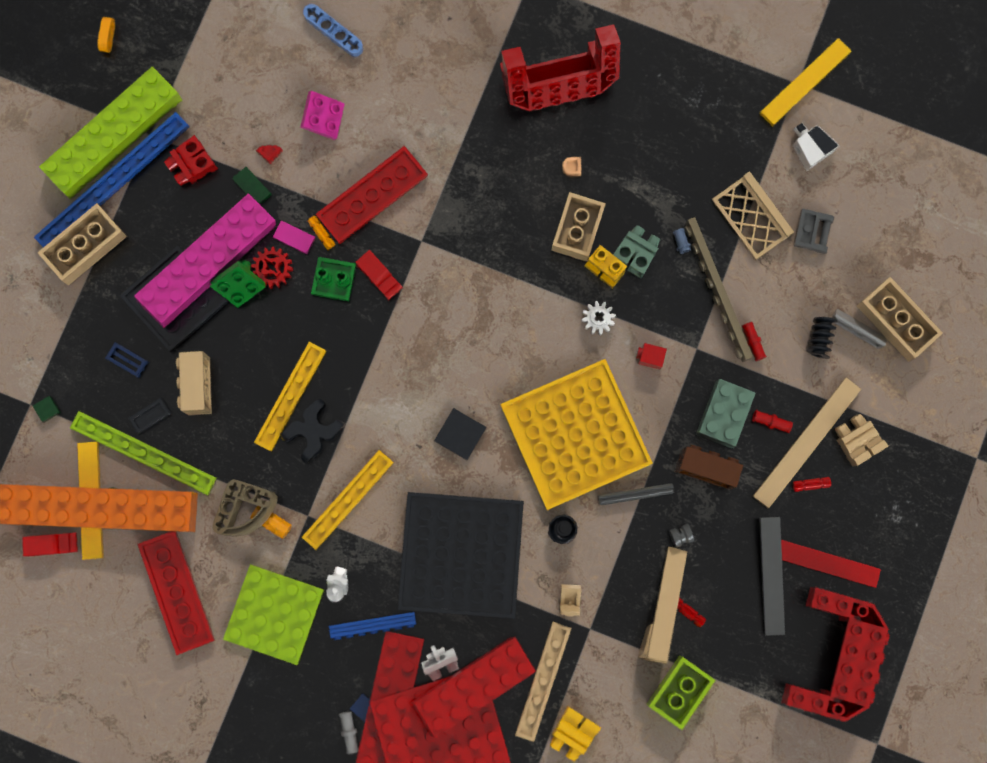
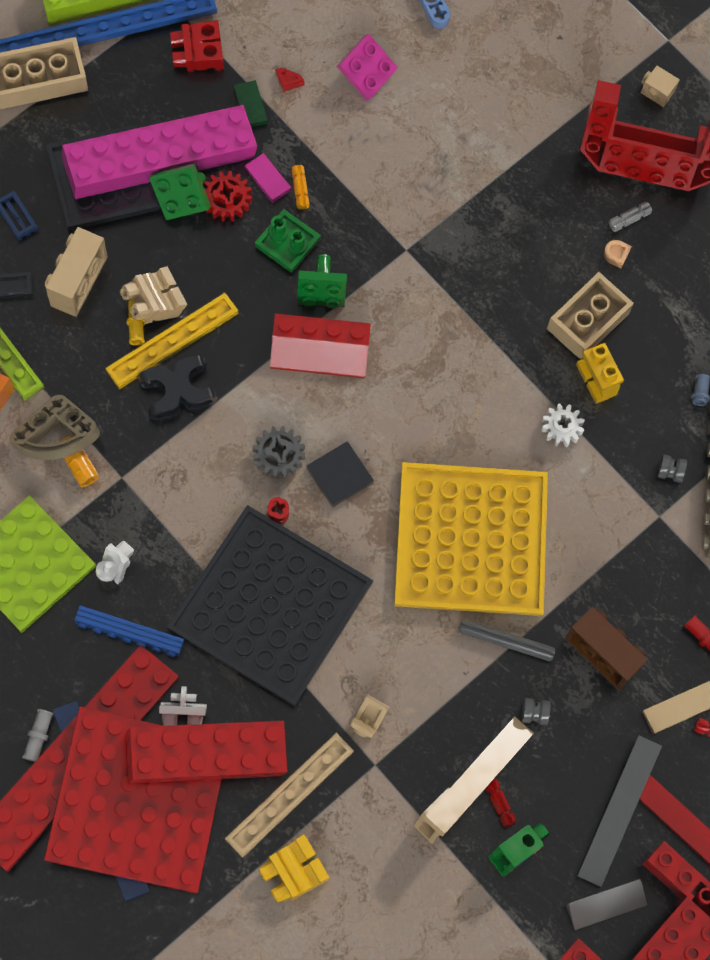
camera: 25 degrees right, 10 degrees down
(257, 396) = (136, 330): none -> yellow axle
(260, 372) = (154, 296): none -> tan hips
(347, 500) = (175, 482): yellow tile -> none
(371, 195) = (377, 174): red plate -> none
(377, 303) = (322, 287): none -> green plate
(378, 274) = (337, 247): red piece -> none
(398, 347) = (320, 345): none -> slope
(416, 435) = (269, 454): none -> dark grey gear
(431, 479) = (282, 505): none -> red bush
(540, 21) = (659, 85): none -> tan brick
(562, 529) = (402, 634): black hair -> none
(568, 134) = (630, 216): none -> light grey axle
(639, 249) = (644, 376): sand green hips -> none
(651, 356) = (602, 495): red brick -> none
(680, 692) = (443, 886): lime brick -> none
(689, 310) = (672, 468): none -> dark grey wheel
(714, 645) = (518, 848): none -> green torso
(725, 413) = (656, 600): sand green brick -> none
(794, 644) = (606, 904): none -> light grey slope

